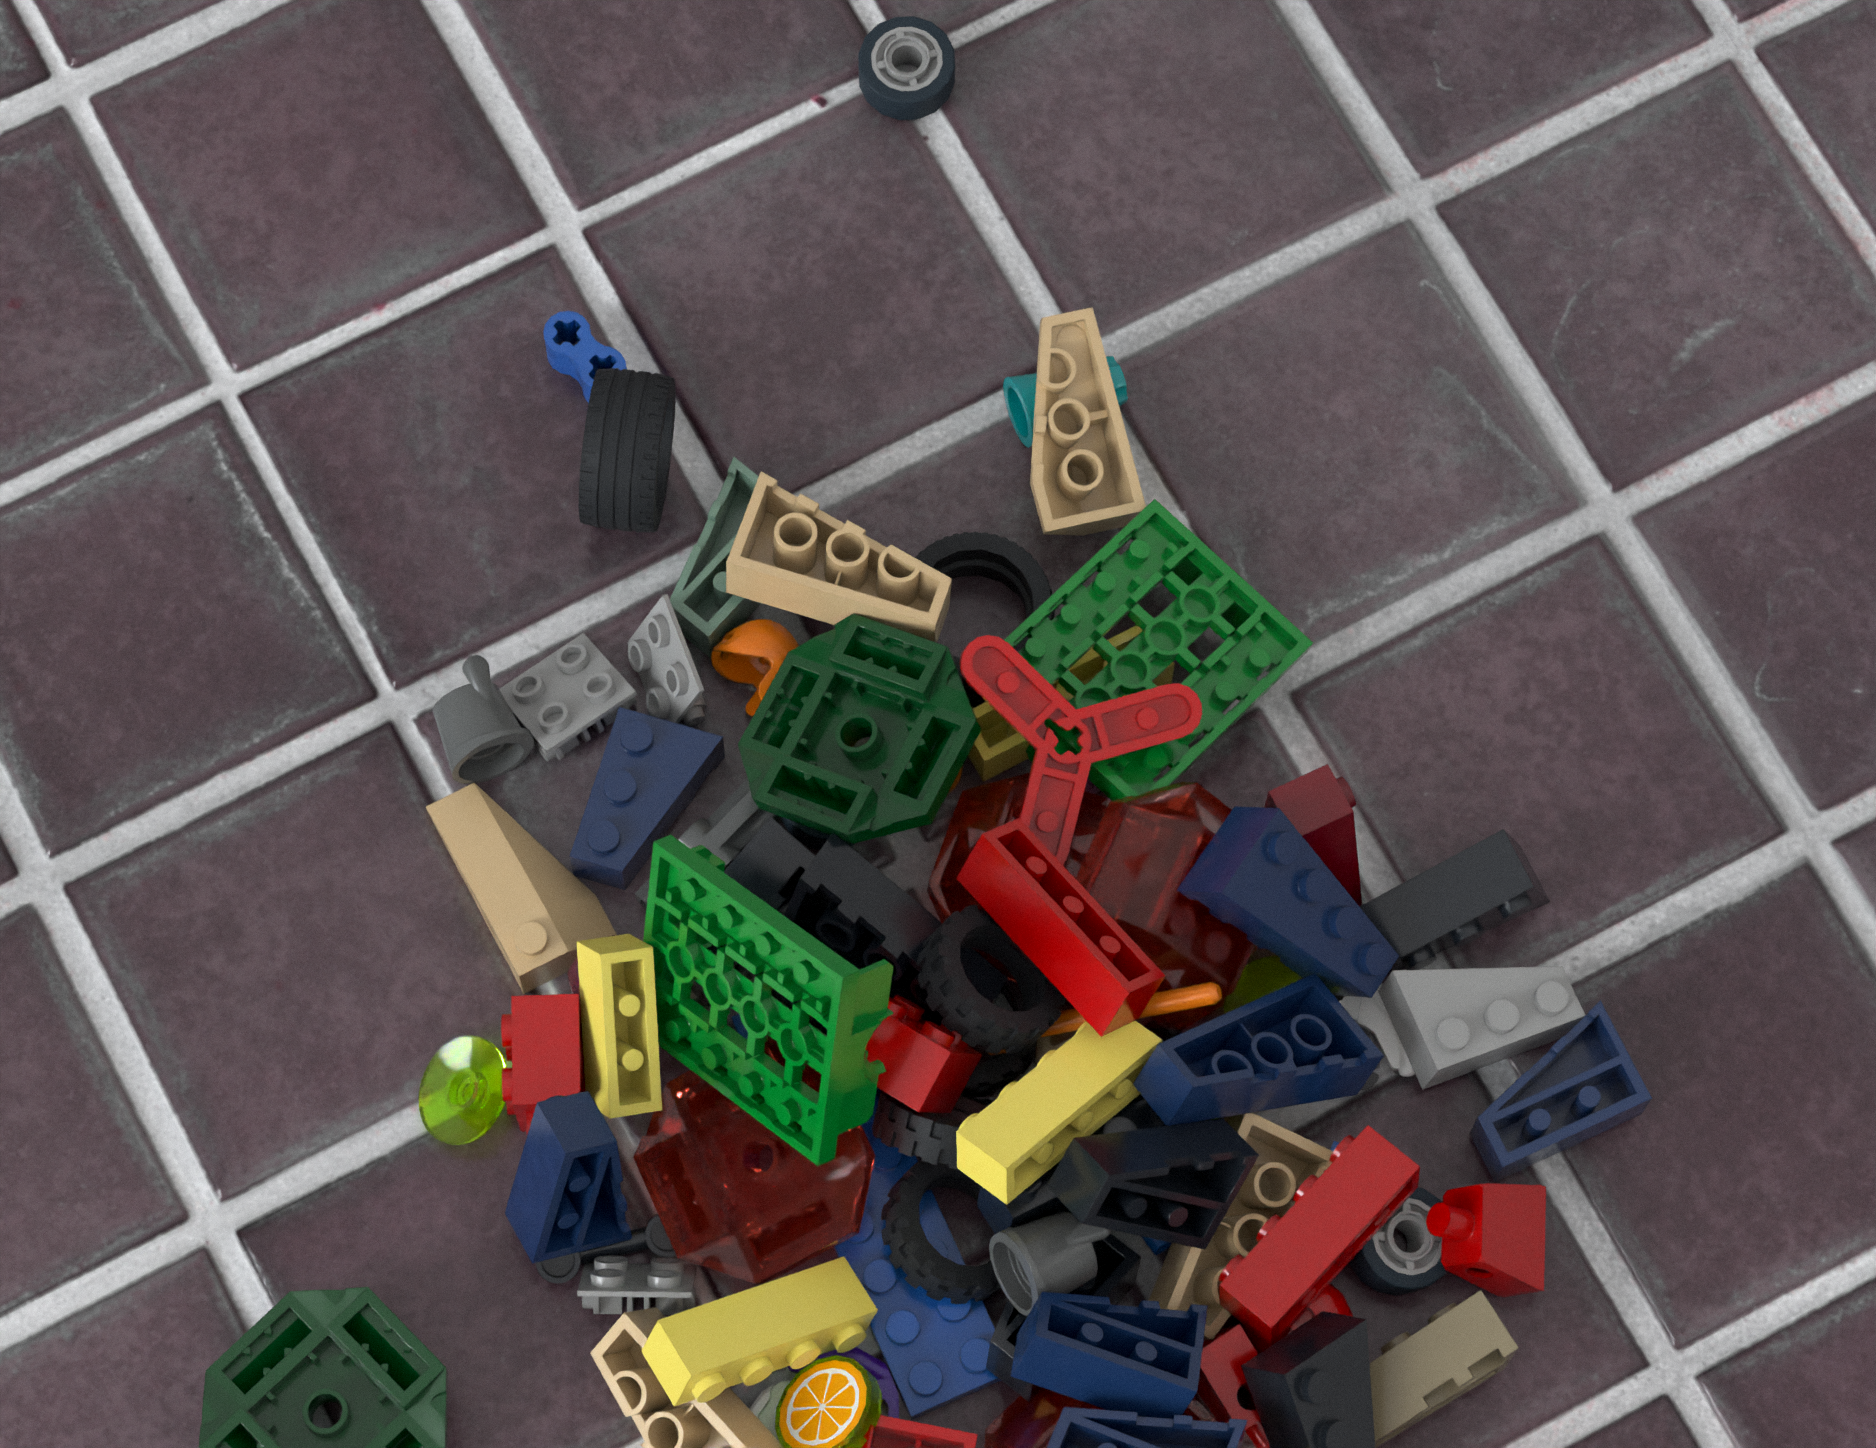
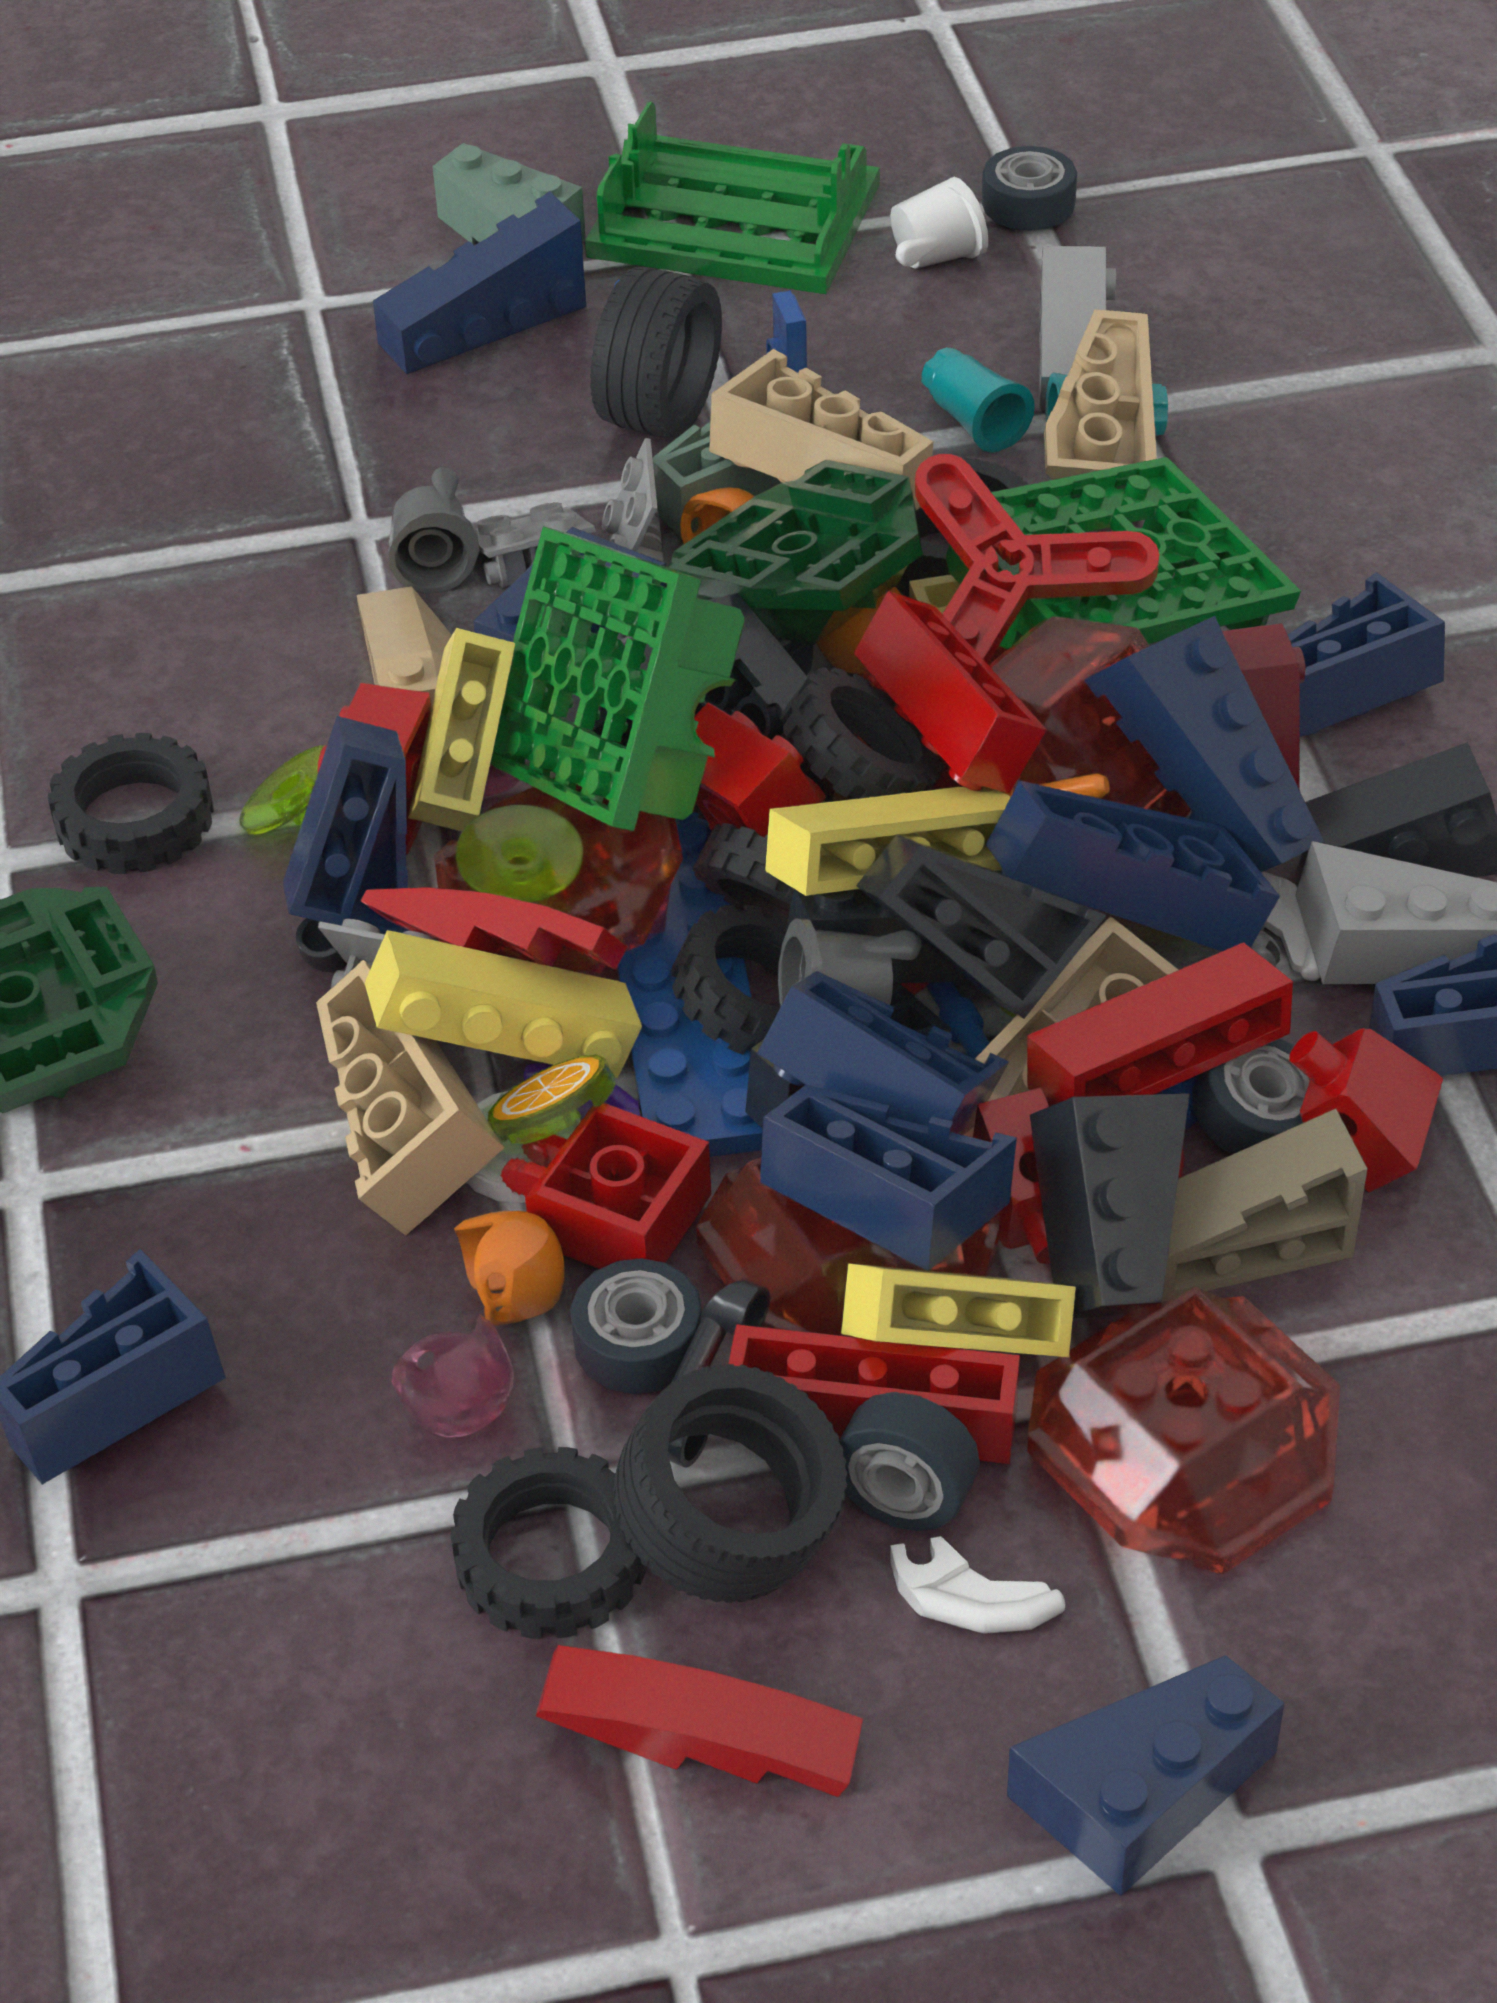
camera: 20 degrees right, 25 degrees down
(295, 1082) = (137, 842): none -> black tyre
(388, 221) = (483, 189): none -> sand green wedge
(411, 364) = (487, 290): none -> dark blue wedge
(612, 93) = (812, 203): none -> green piece
(707, 1254) = (490, 920): none -> red slope
(726, 1136) = (519, 853): none -> clear neon green dish
(746, 396) = (789, 330): none -> blue plate
(833, 158) = (939, 225): none -> white hat
(937, 405) = (983, 402): none -> teal plant
(1008, 289) = (1070, 289): none -> light grey wedge
(1373, 694) = (1367, 654): none -> dark blue wedge

